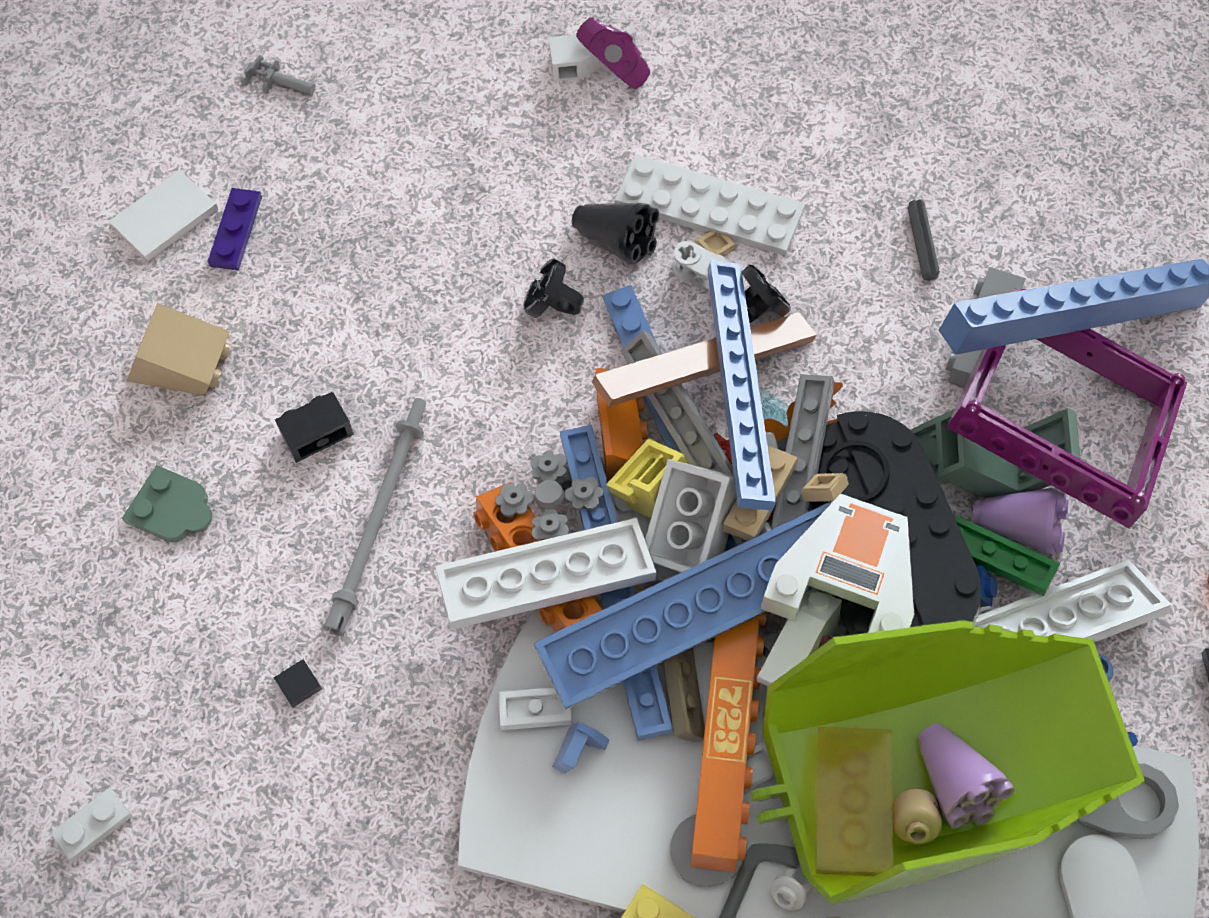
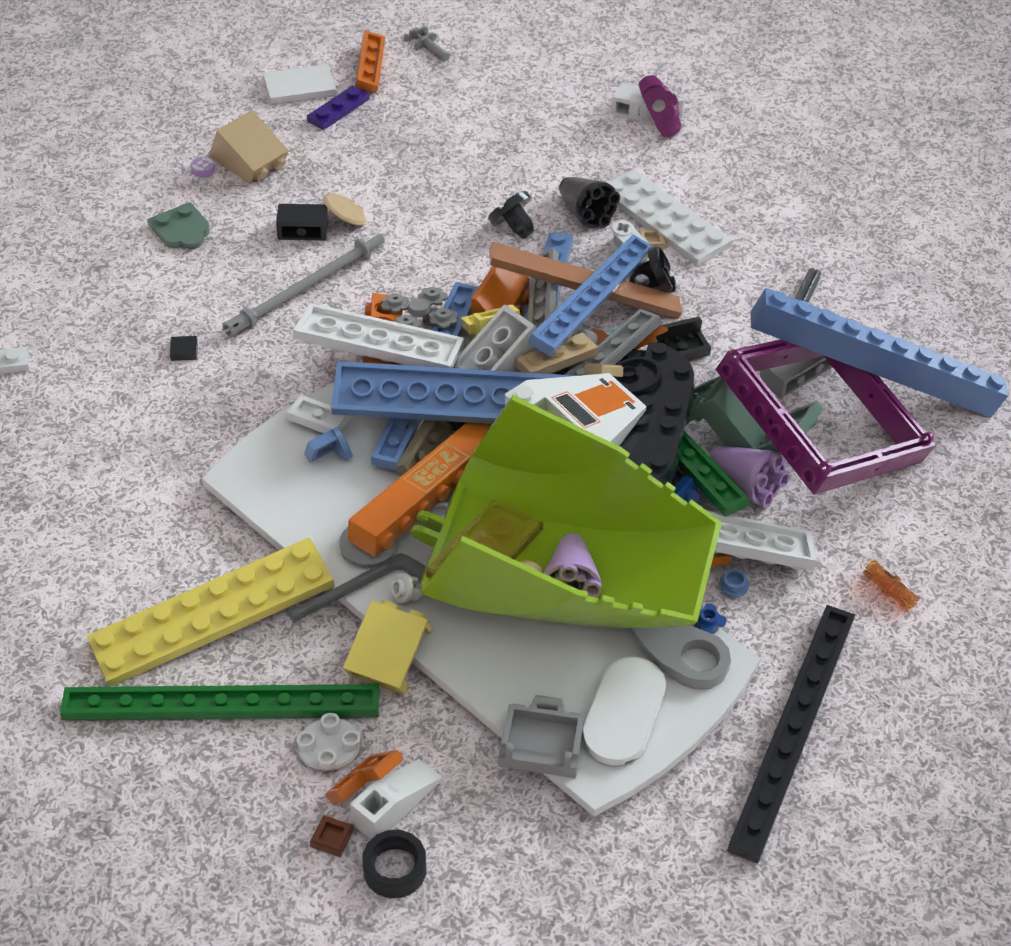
camera: 25 degrees right, 15 degrees down
(133, 401) = (203, 166): none -> lavender tile
(229, 142) = (370, 62): none -> orange plate
(351, 382) = (344, 209): none -> tan piece
(854, 373) = (686, 338): none -> pearl dark grey bracket

